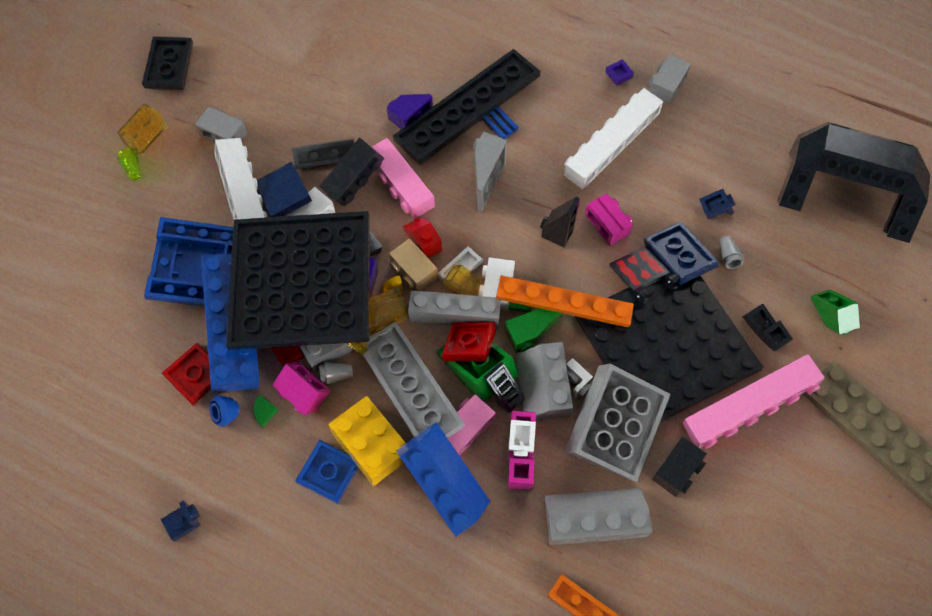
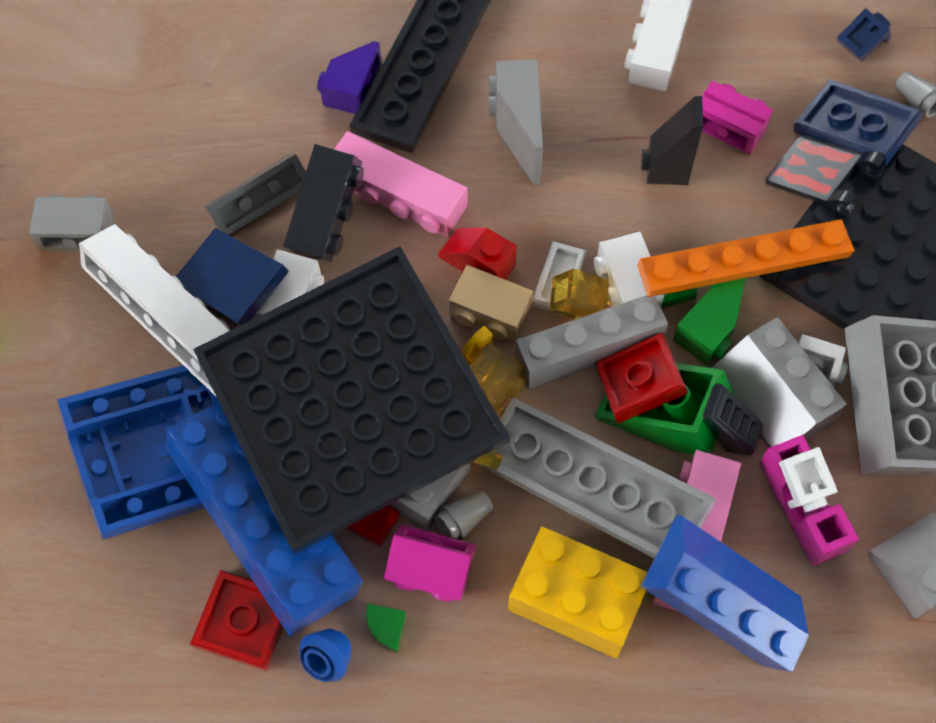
camera: 25 degrees left, 0 degrees up
(327, 471) = (537, 670): blue tile -> none
(507, 120) = (496, 39): blue tile -> none

